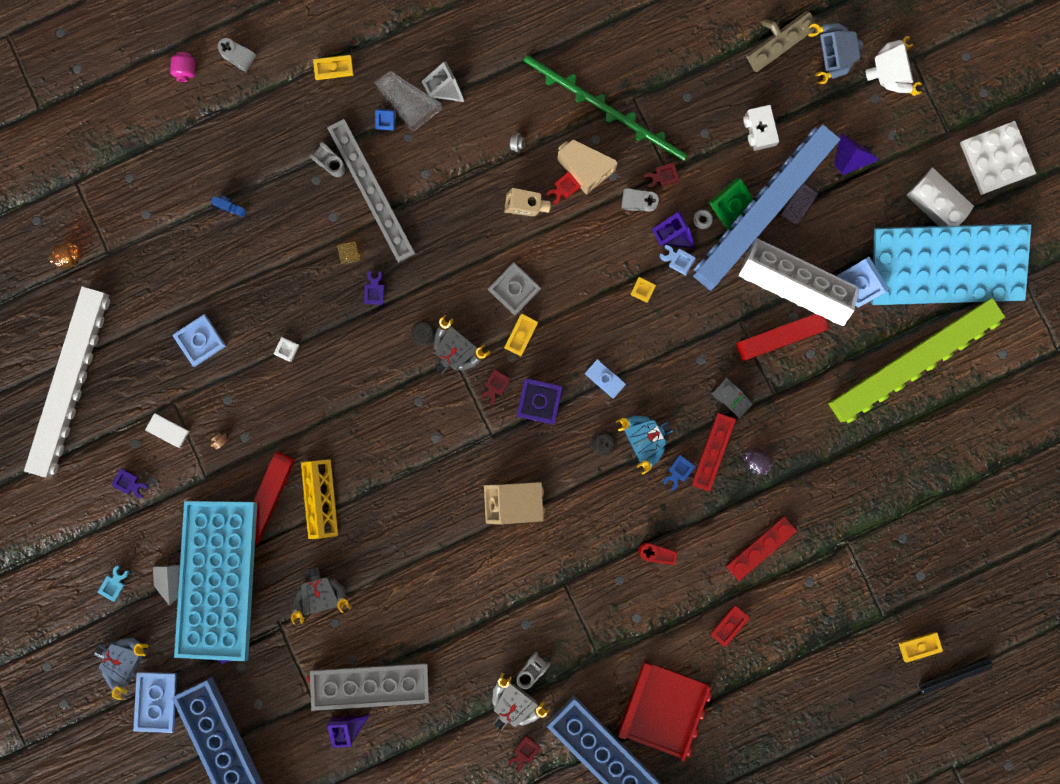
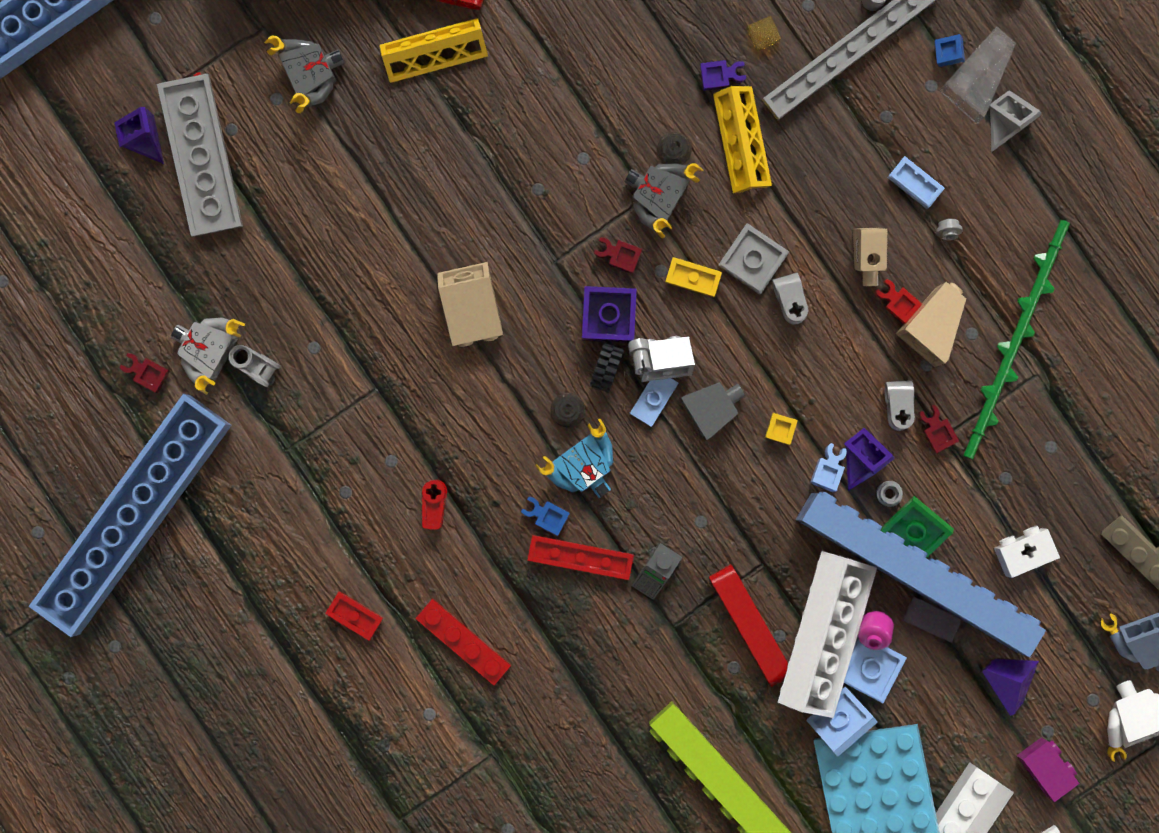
camera: 85 degrees right, 0 degrees up
(424, 284) = (738, 138): none -> yellow fence
(478, 161) = (915, 182): none -> light blue plate
(545, 266) = (789, 294): none -> light grey piece
(578, 368) = (662, 358): none -> hinge
(578, 409) = (606, 367): none -> black tyre
(619, 337) = (712, 407): none -> dark grey torso
(664, 710) = (230, 547): red panel -> none
(757, 462) = (577, 618): clear purple head -> none
(801, 246) = (876, 630): none -> dark pink head
(827, 252) = (873, 670): none -> light blue tile
(919, 140) = (1048, 768): none -> magenta brick

